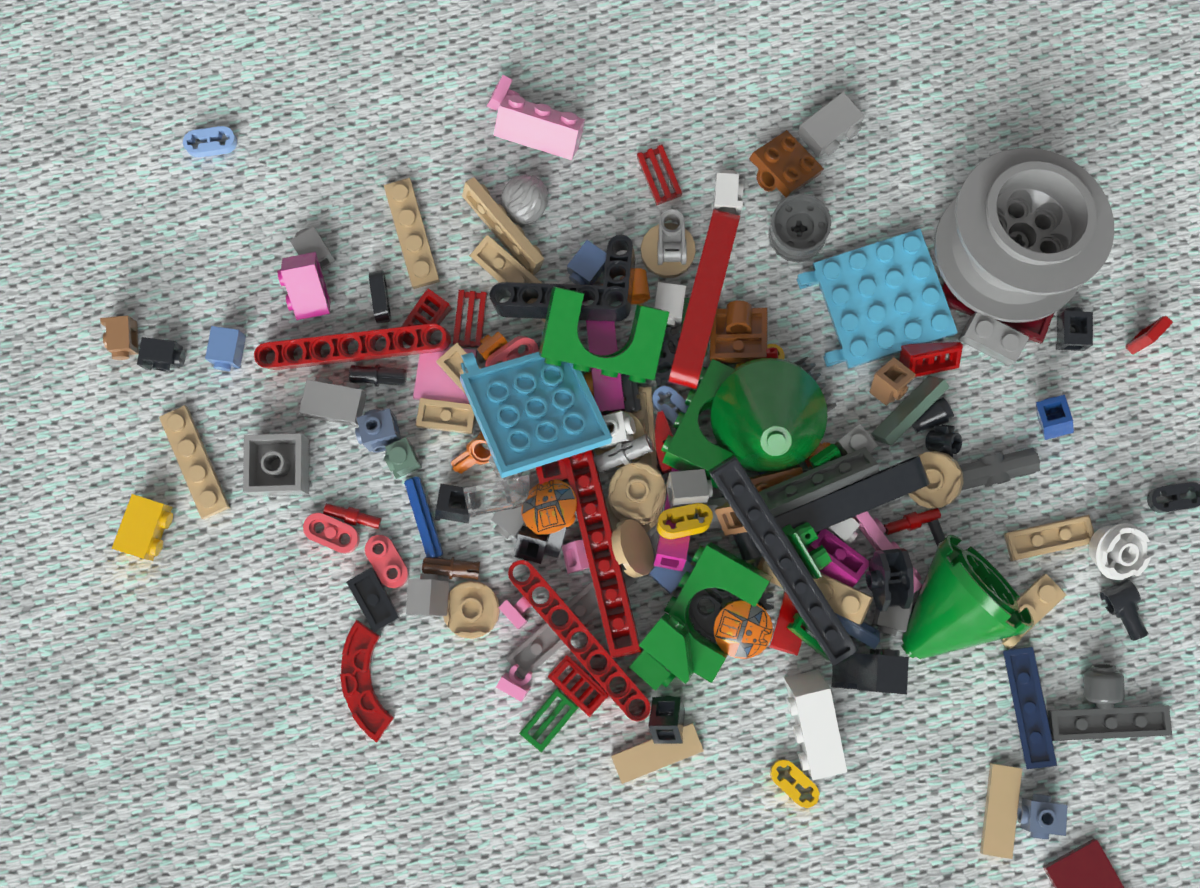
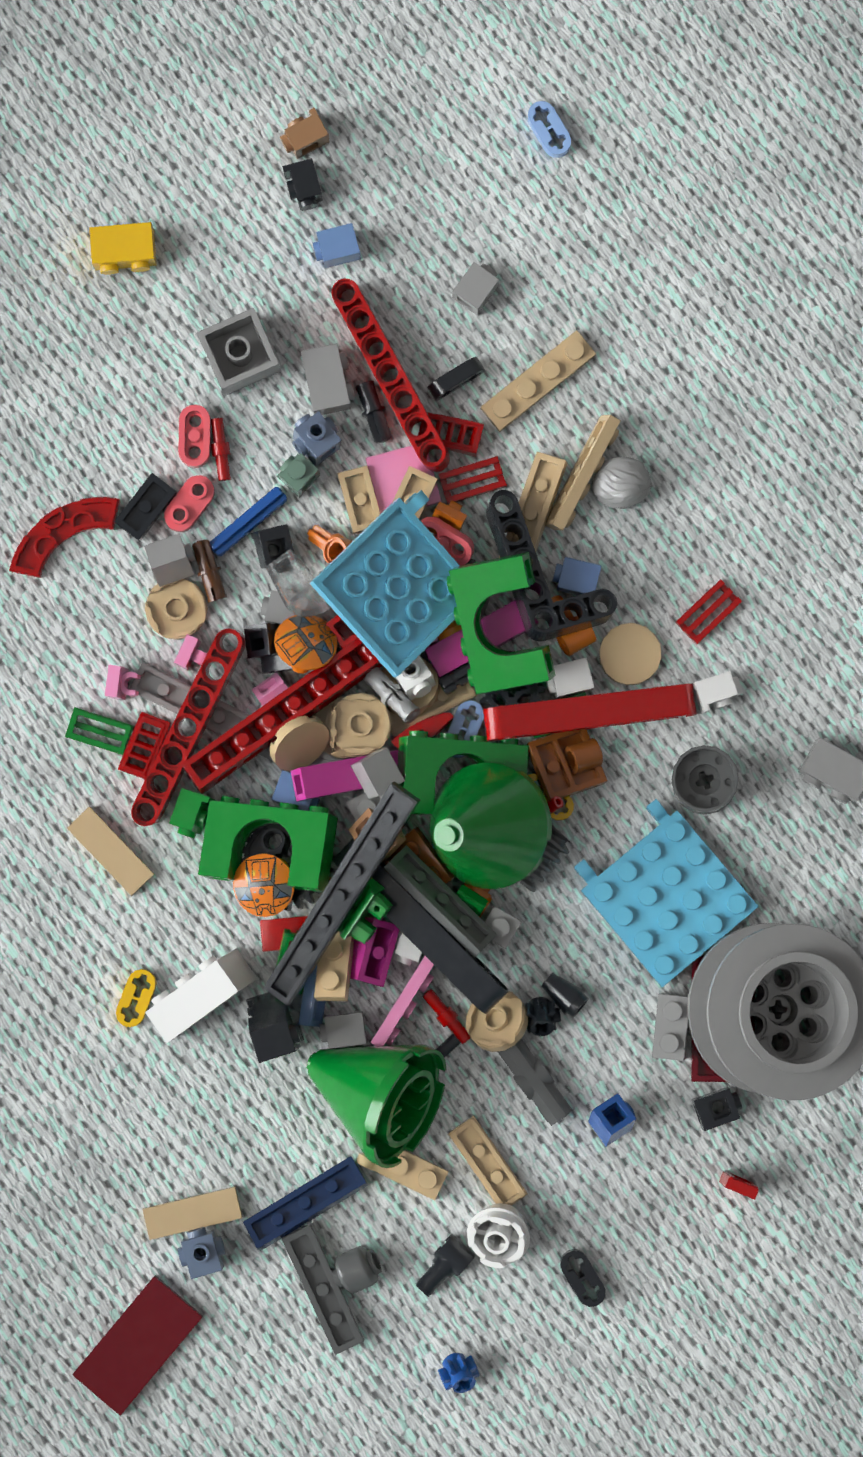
camera: 65 degrees right, 5 degrees up
(194, 462) = (210, 266): tan plate -> none
(304, 285) = (432, 299): brick -> none
(500, 92) = (726, 410): bright pink tile -> none
(539, 126) = (704, 465): bright pink brick -> none
(667, 720) = (146, 846): black brick -> none
(670, 646) = (215, 819): green slope -> none
(672, 243) = (636, 653): light grey piece -> none
(684, 521) = (338, 786): yellow beam -> none
(784, 165) = (771, 739): dark orange plate -> none
(891, 381) = (580, 938): medium nougat brick -> none
(891, 579) = (372, 1010): black hinge -> none
(910, 410) = (560, 970): sand green tile -> none
(913, 355) = (619, 960): red slope -> none

